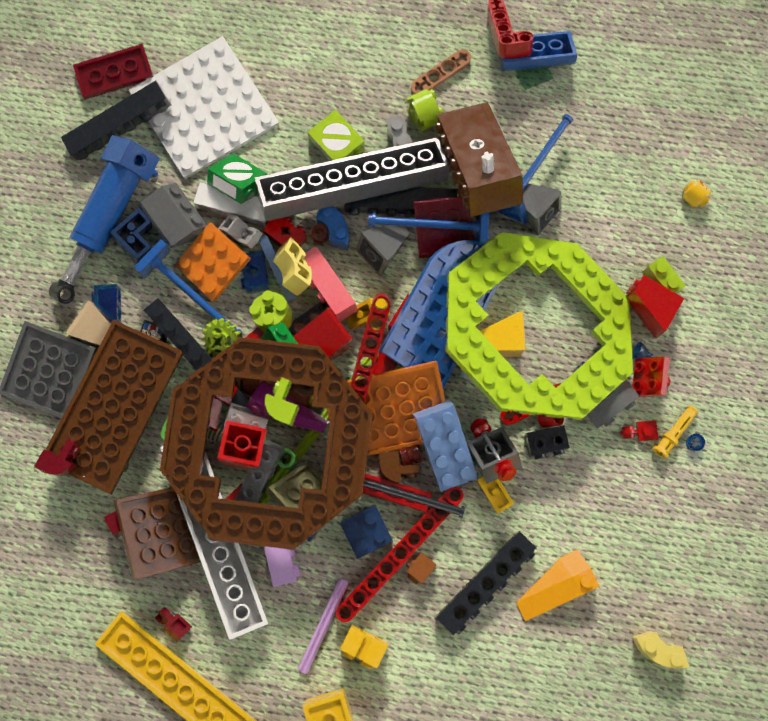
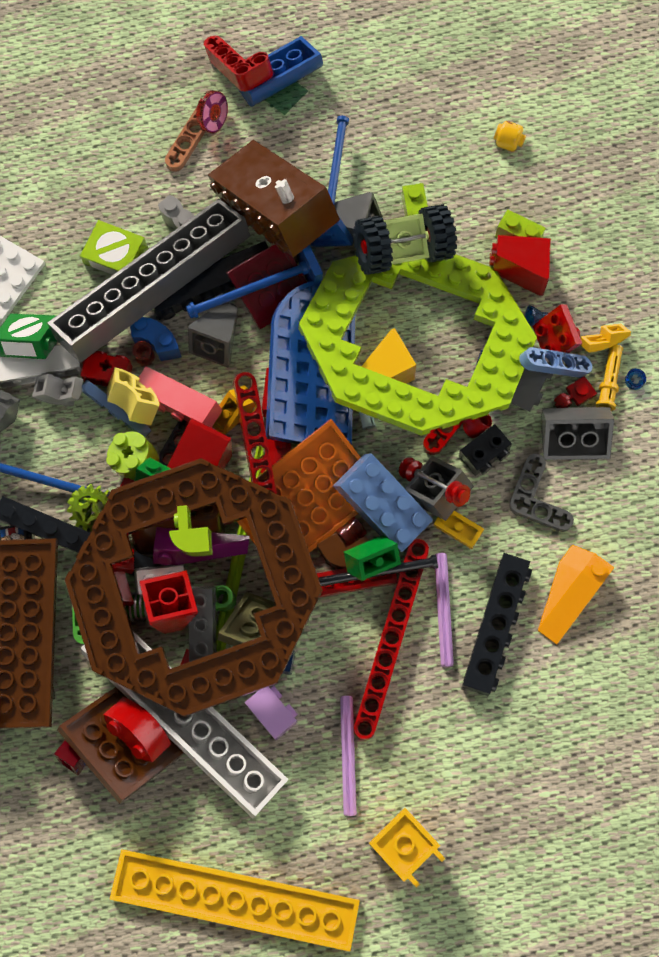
camera: 20 degrees left, 5 degrees down
(172, 530) = (137, 729): none -> red brick
(175, 625) = (188, 835): dark red plate -> none
(212, 262) = (43, 434): orange plate -> none
(260, 281) = (84, 415): clear blue brick -> none
(363, 646) = (402, 752): yellow brick -> none
(366, 532) = (344, 633): dark blue brick -> none
(414, 485) = (372, 557): none -> green brick
(420, 568) = (420, 643): dark orange brick -> none
(423, 109) = (190, 178): lime brick -> none
(451, 551) = (444, 613): none -> lavender axle
(467, 61) = (212, 111): none -> tile
(562, 494) = (528, 498): none -> dark grey beam
(567, 243) = (405, 239): none -> black plate
(590, 219) = (413, 198): none -> lime brick
(626, 463) = (577, 433): none -> dark grey slope
(638, 396) = (529, 362): none -> medium blue beam
(691, 398) = (608, 337): none -> yellow slope

